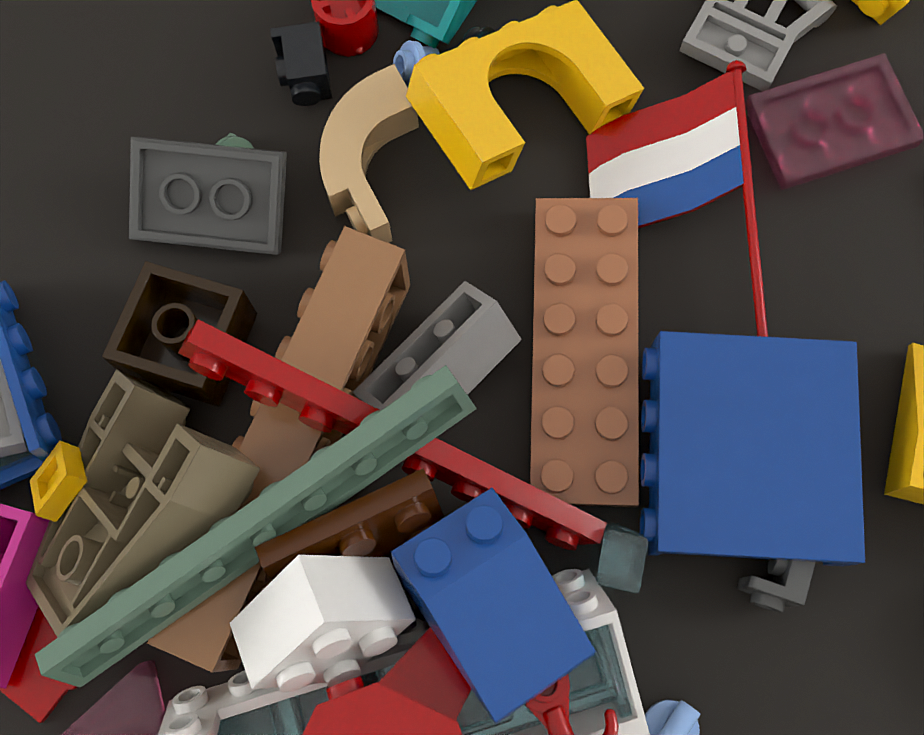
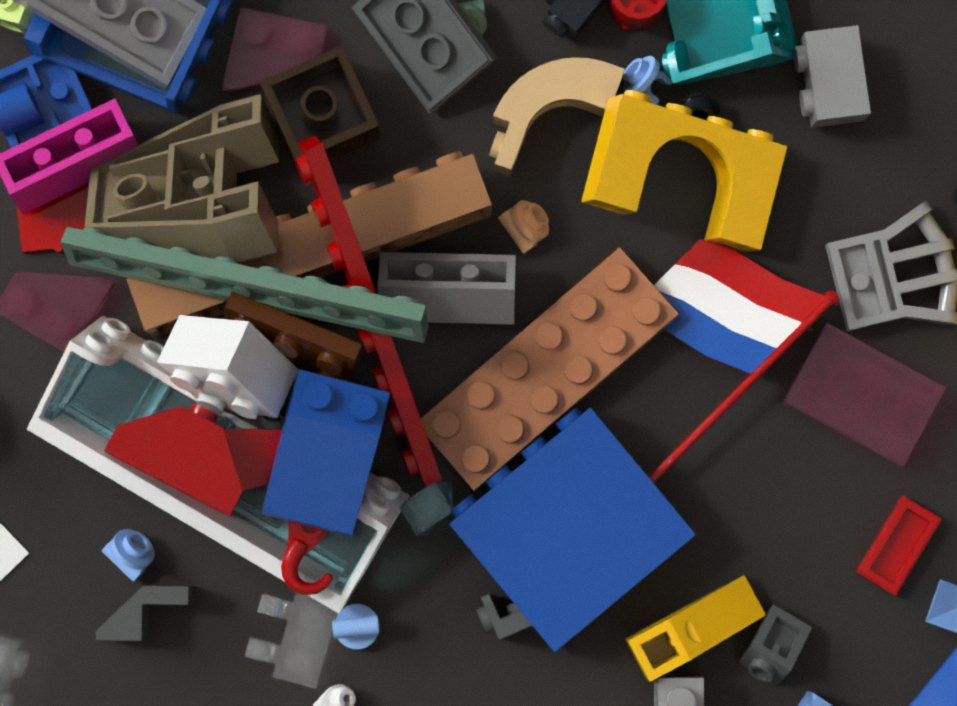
camera: 45 degrees right, 10 degrees up
(57, 481) = (164, 128): yellow tile -> none
(80, 335) = (268, 45): none -> clear pink wing
(444, 259) = (525, 224): none -> light nougat plate

